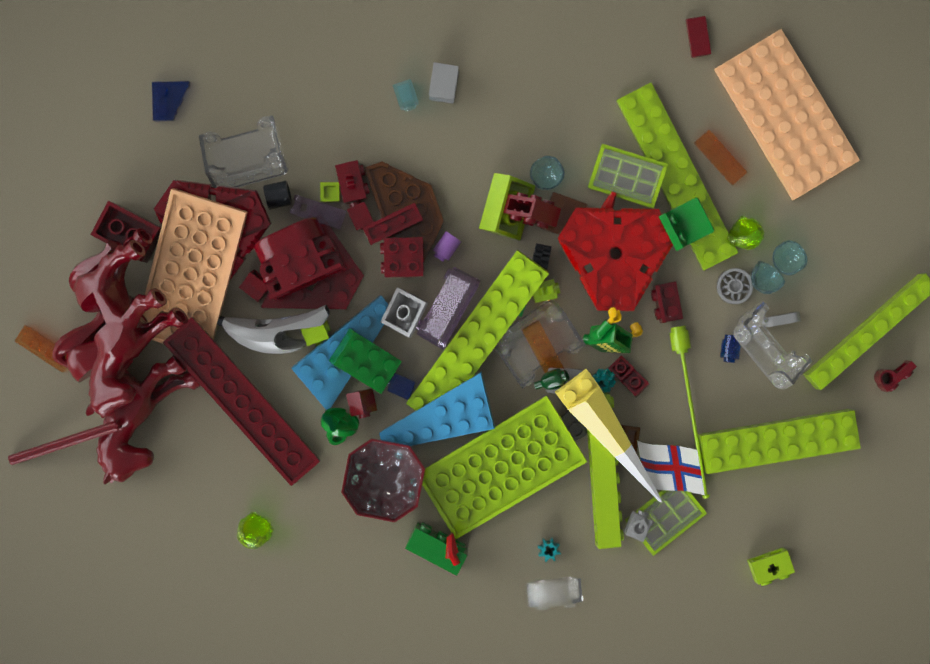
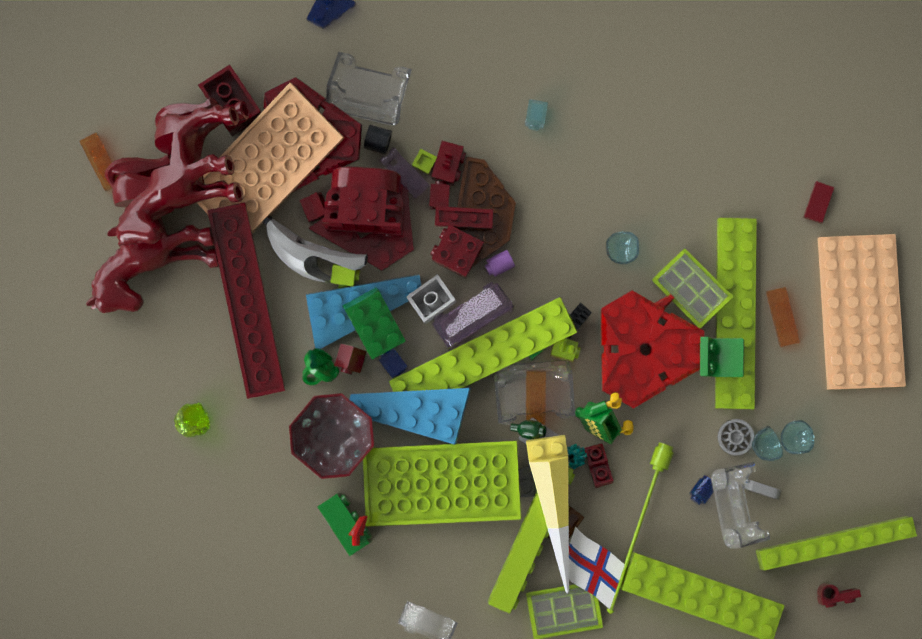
camera: 30 degrees right, 5 degrees down
(65, 442) = (71, 250): dark red axle -> none
(443, 83) = (574, 121): light grey piece -> none
(493, 218) = (572, 257): lime slope -> none
(532, 210) = (592, 271): dark red brick -> none
(554, 550) = (439, 585): teal gear -> none
(567, 207) = (613, 287): reddish brown wing -> none
(638, 525) = (535, 602): light grey brick -> none
(667, 302) = (668, 418): dark red bracket -> none
(746, 233) = (770, 395): clear neon green hair -> none

